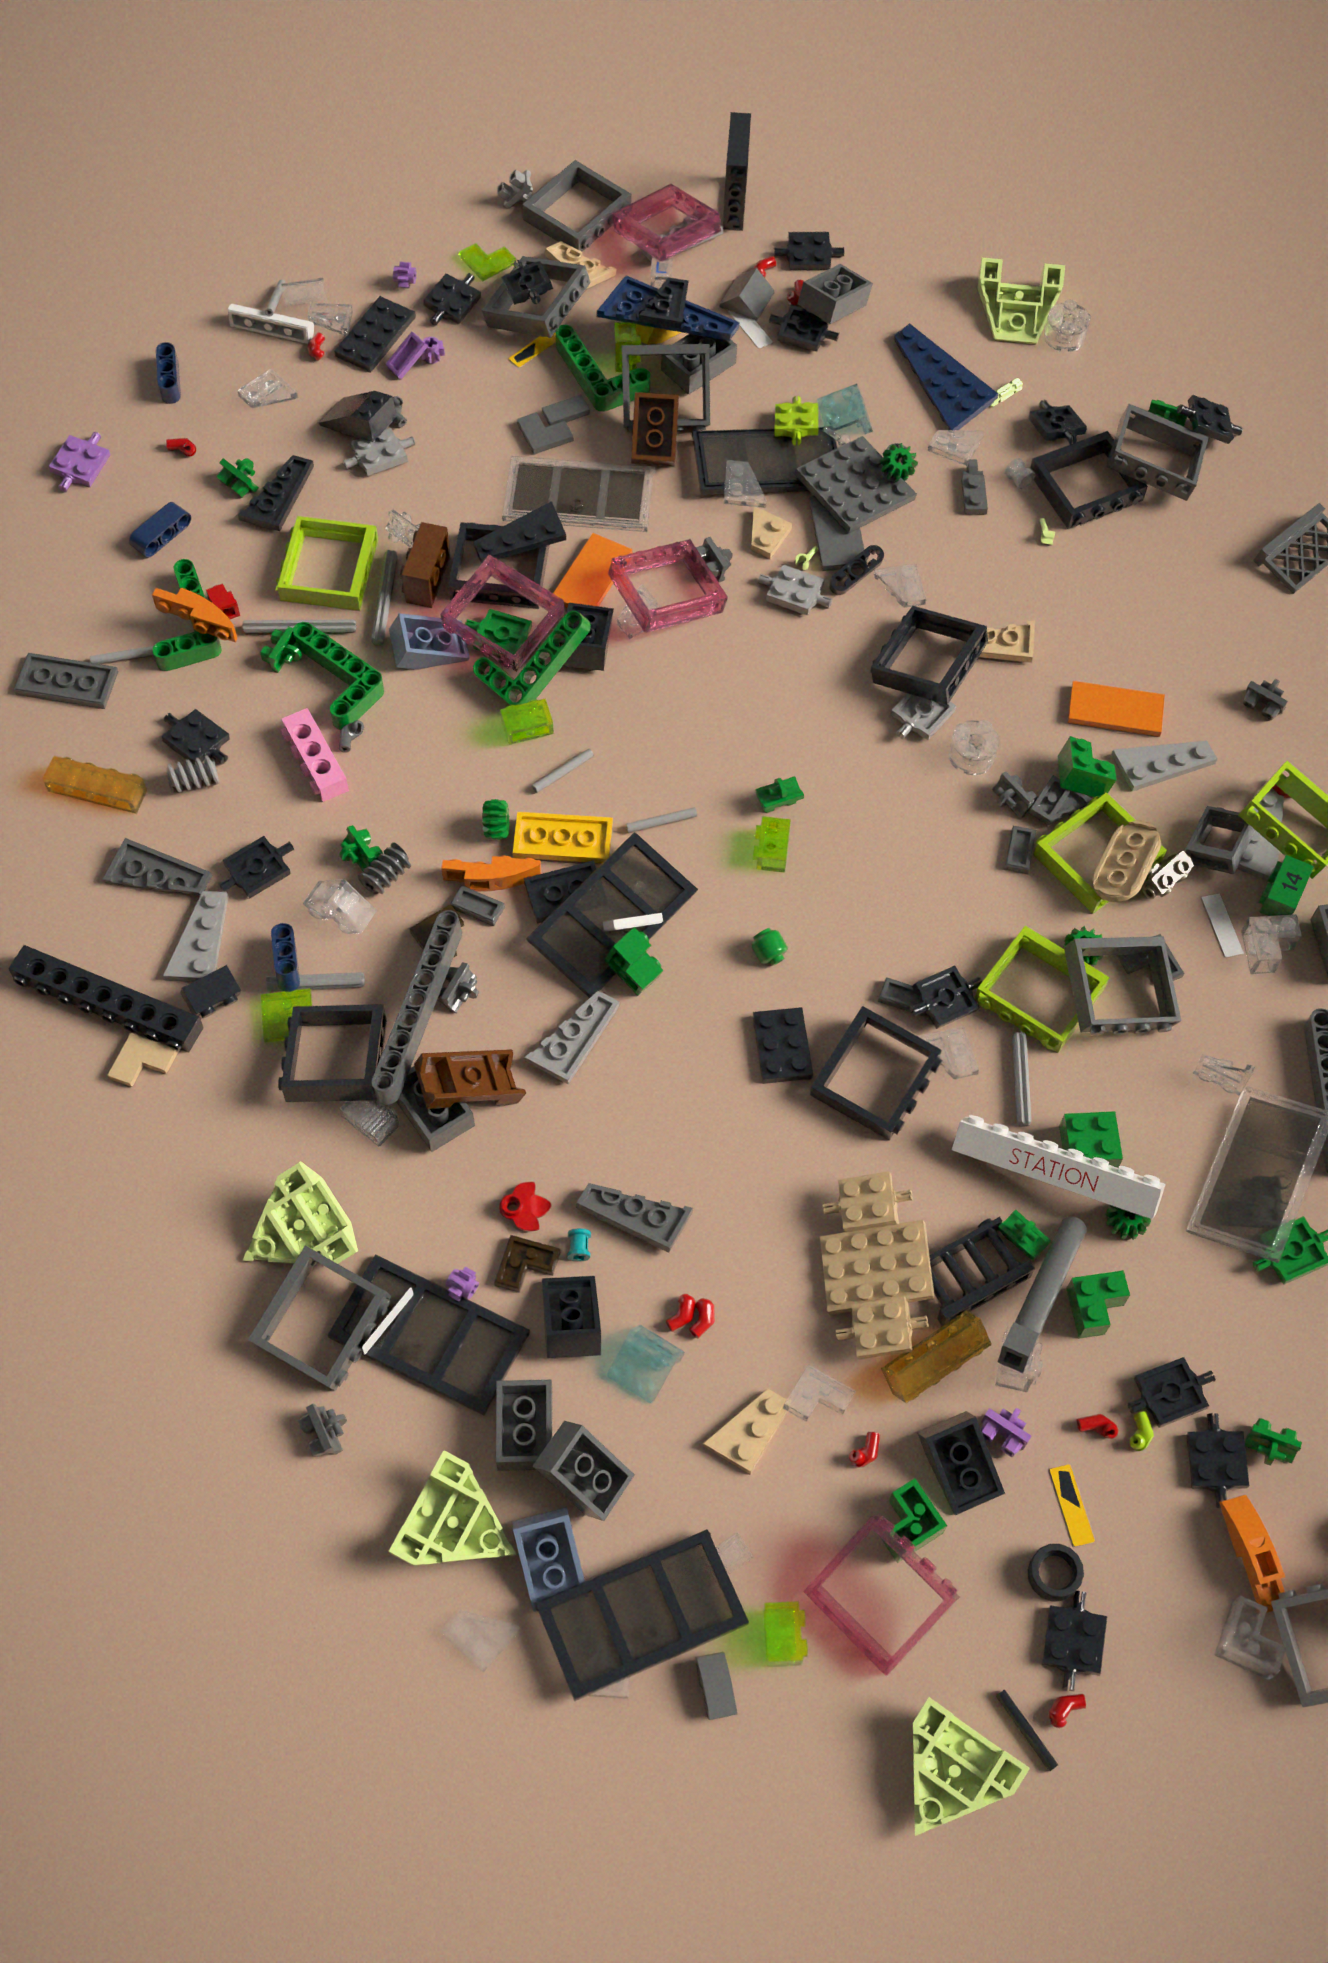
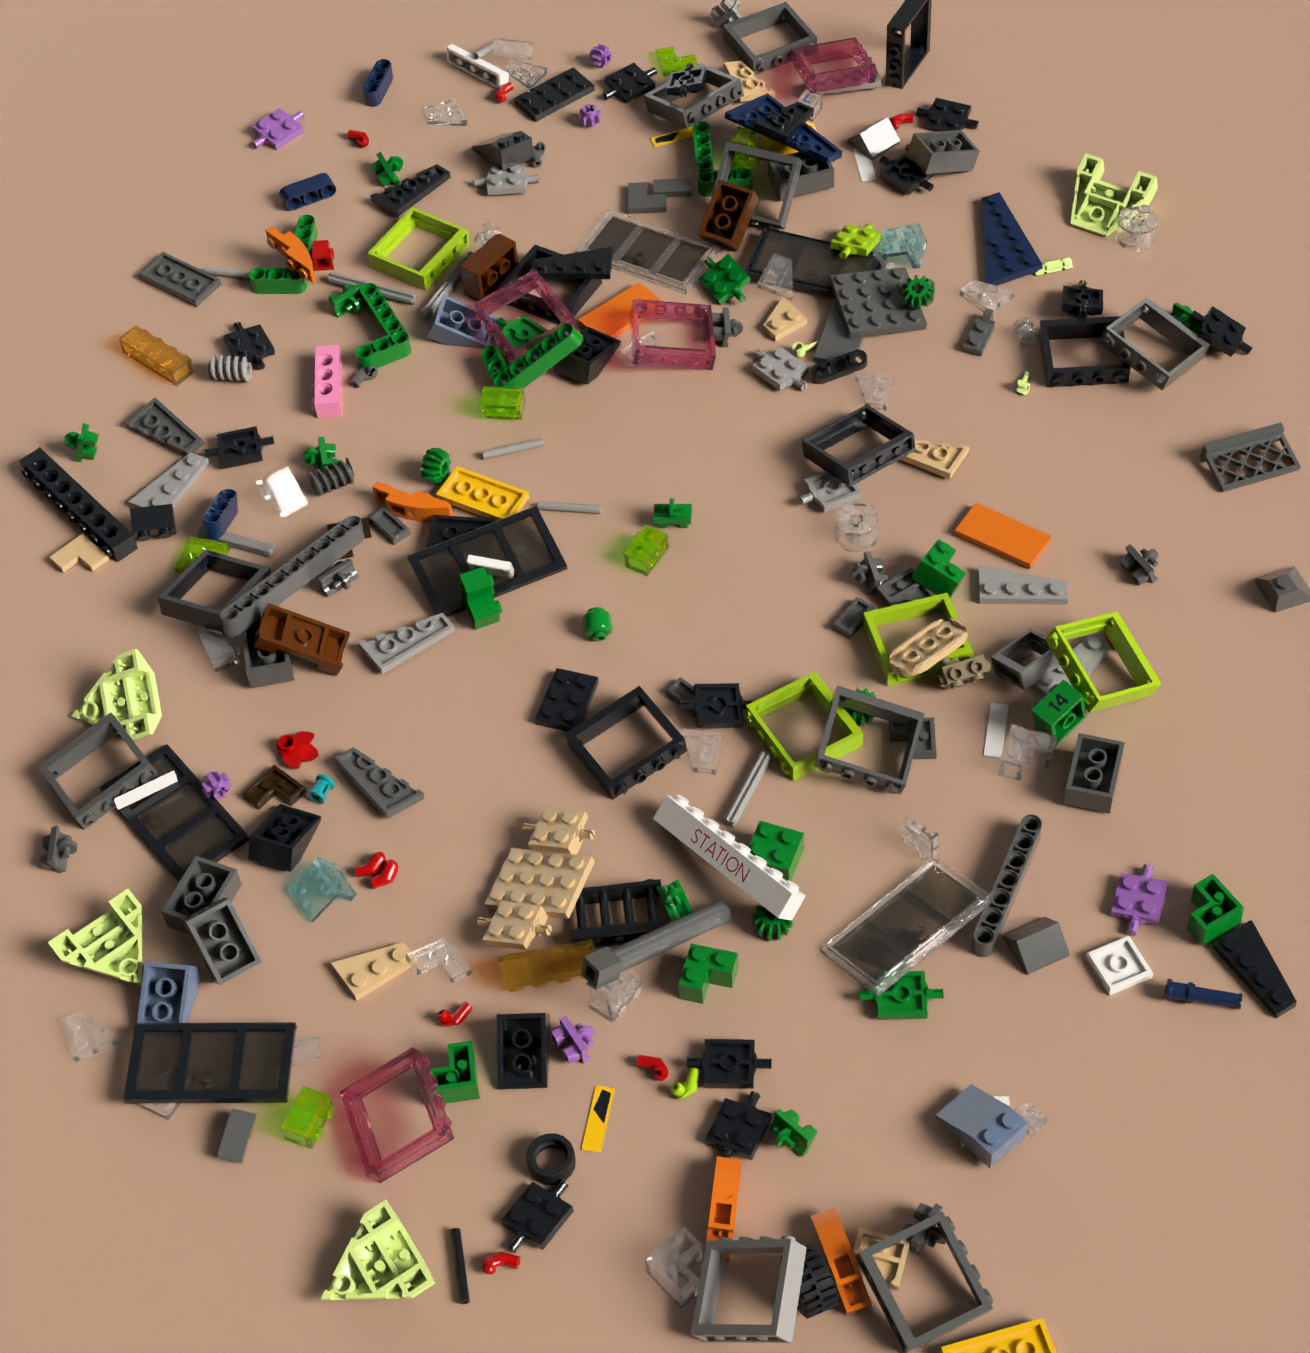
camera: 30 degrees right, 10 degrees down
(74, 921) = (84, 443): none -> green hips
(406, 355) = (566, 114): medium lavender tile -> none
(684, 503) = (725, 279): none -> green plate

